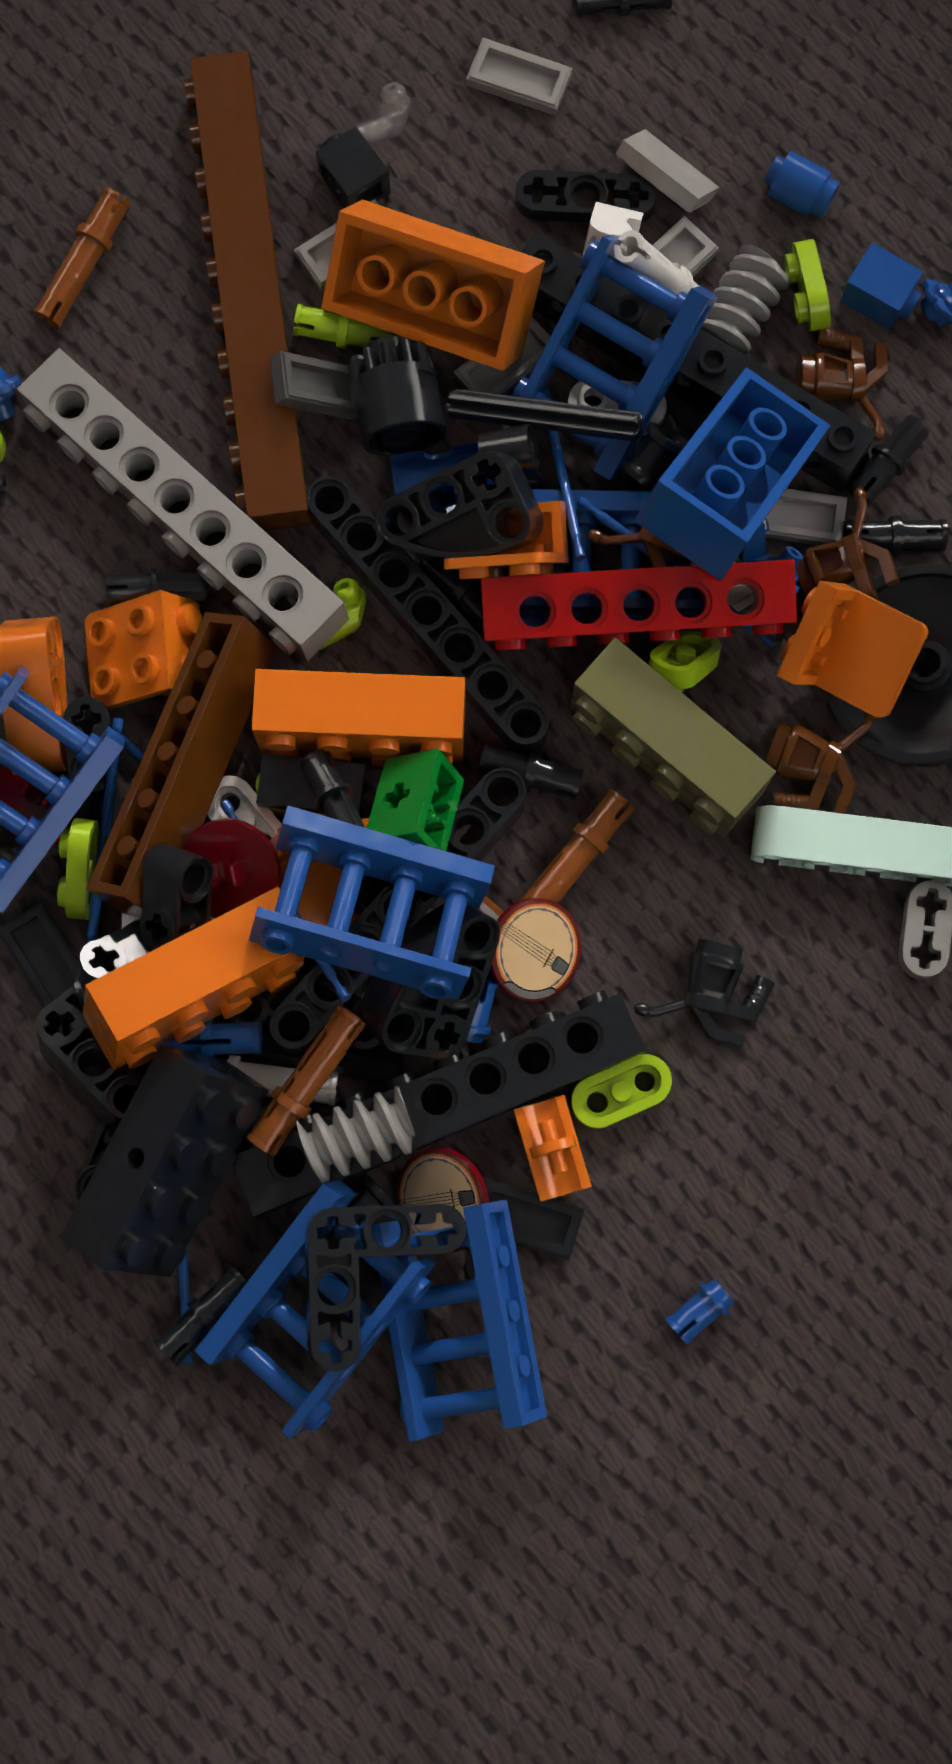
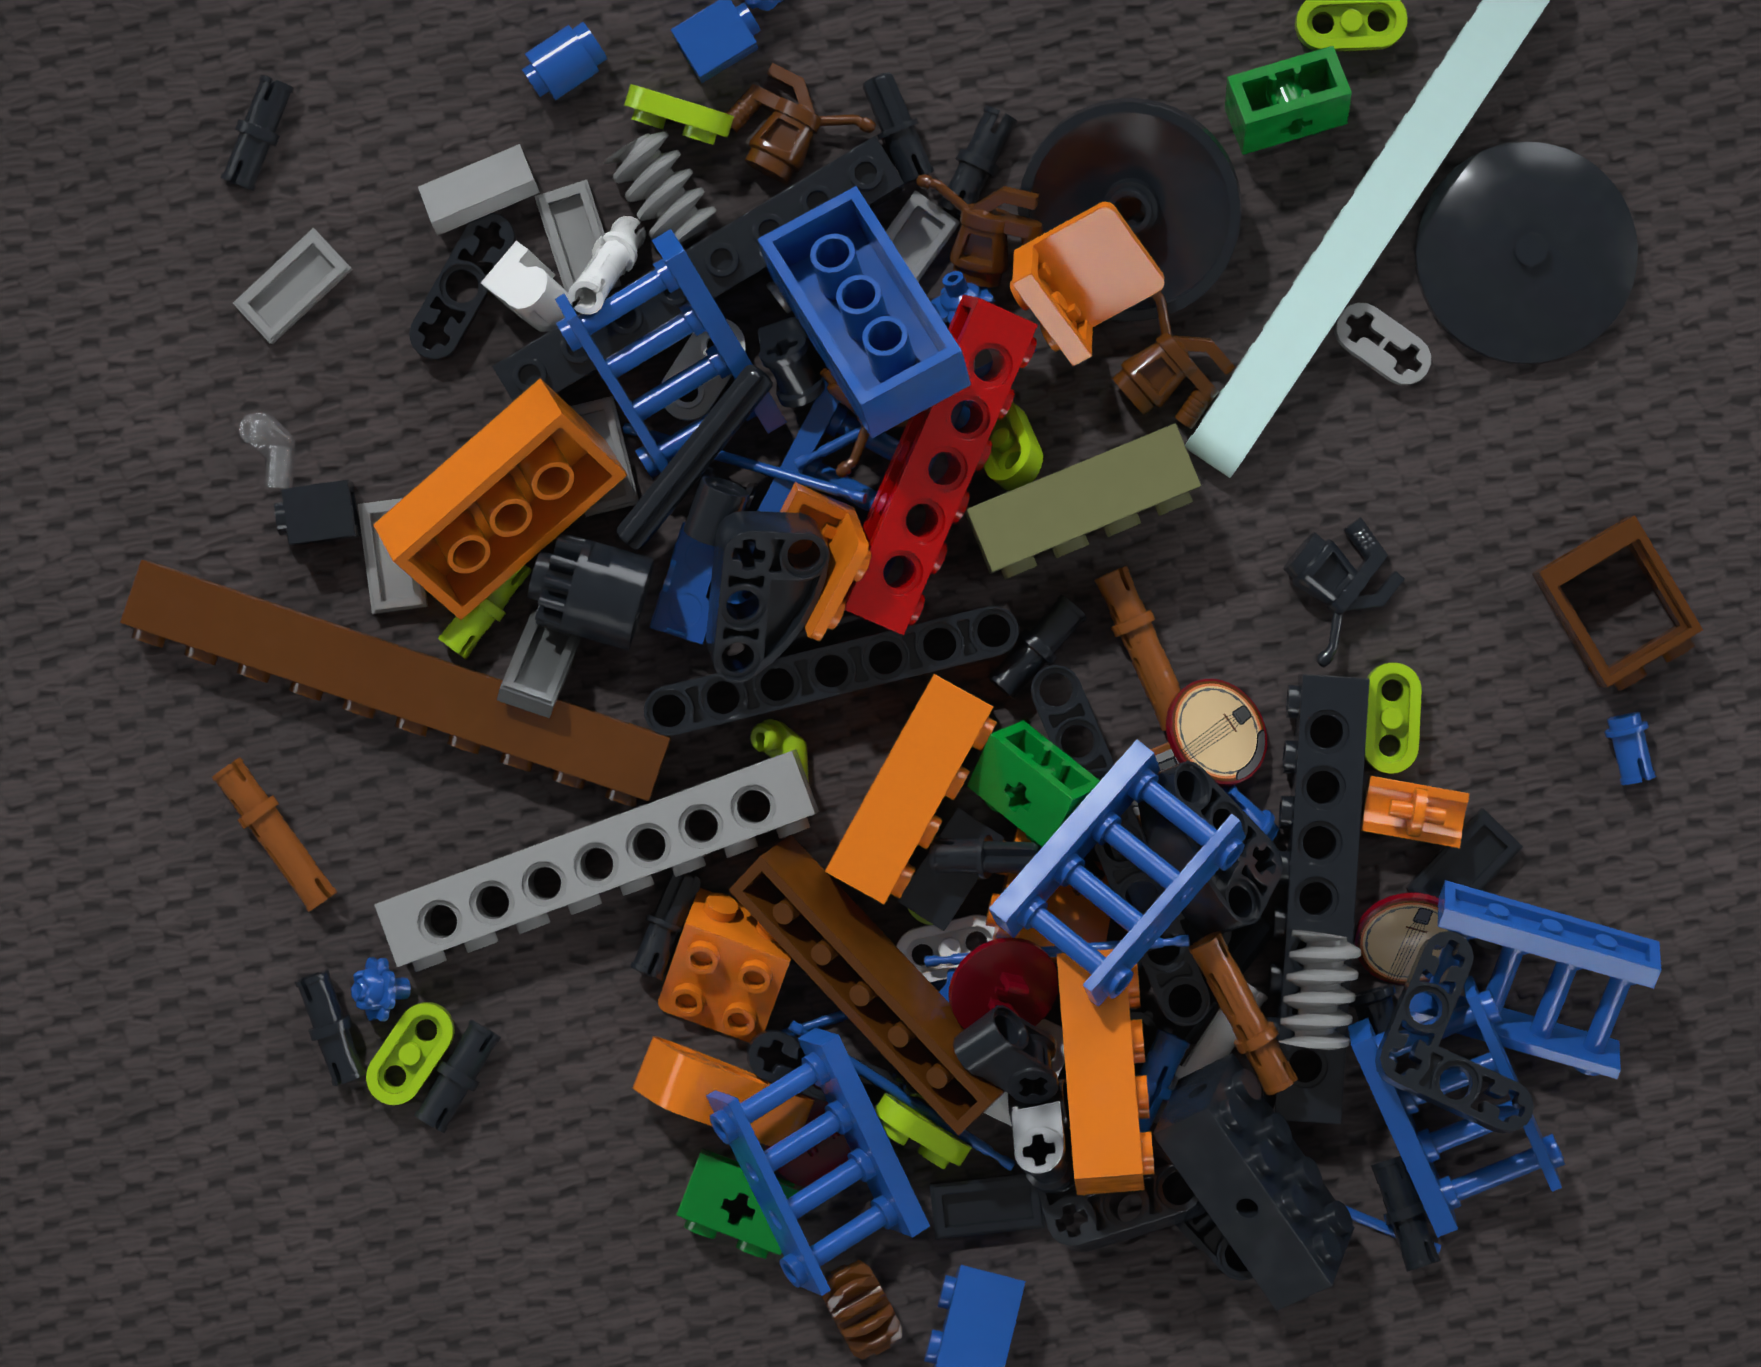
camera: 65 degrees left, 10 degrees up
(849, 1191) = (1669, 644): none -> reddish brown window

